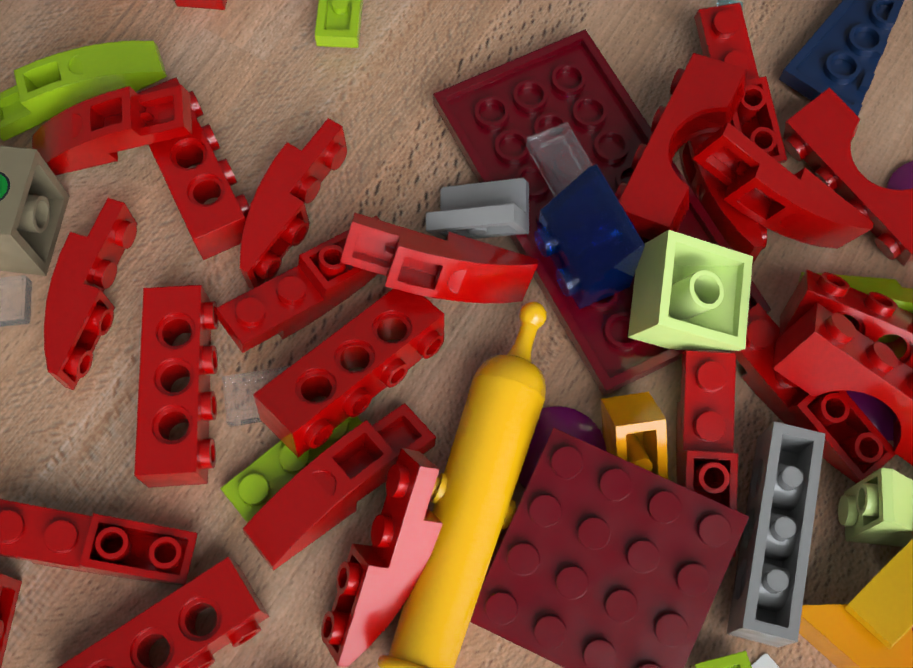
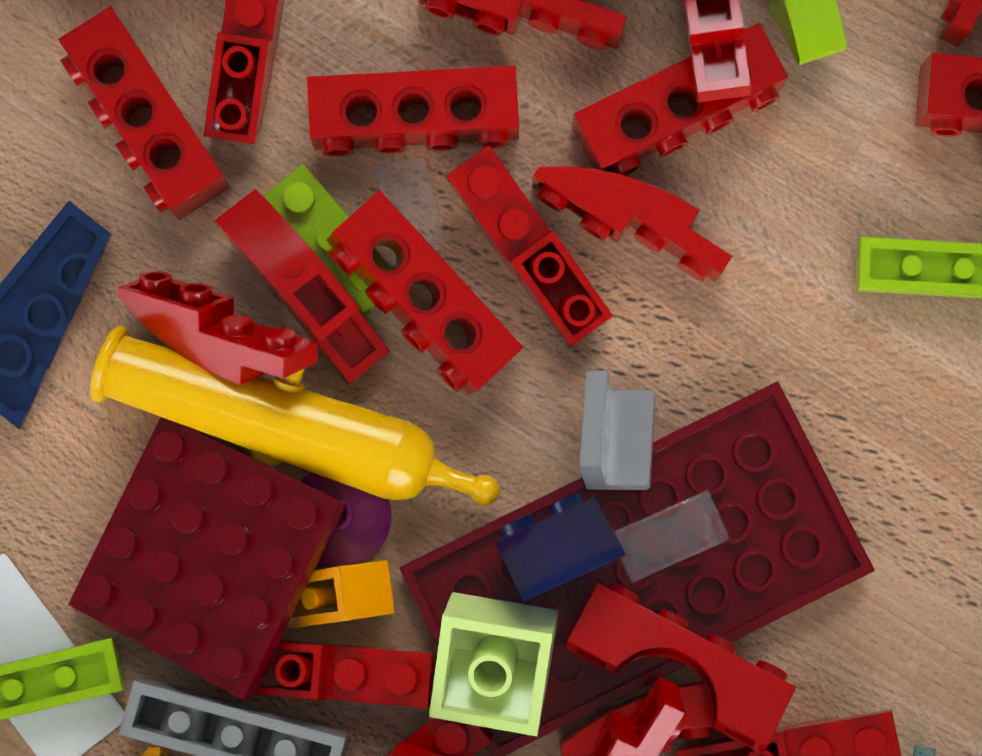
camera: 90 degrees right, 15 degrees up
(435, 267) = (532, 404): red slope -> none

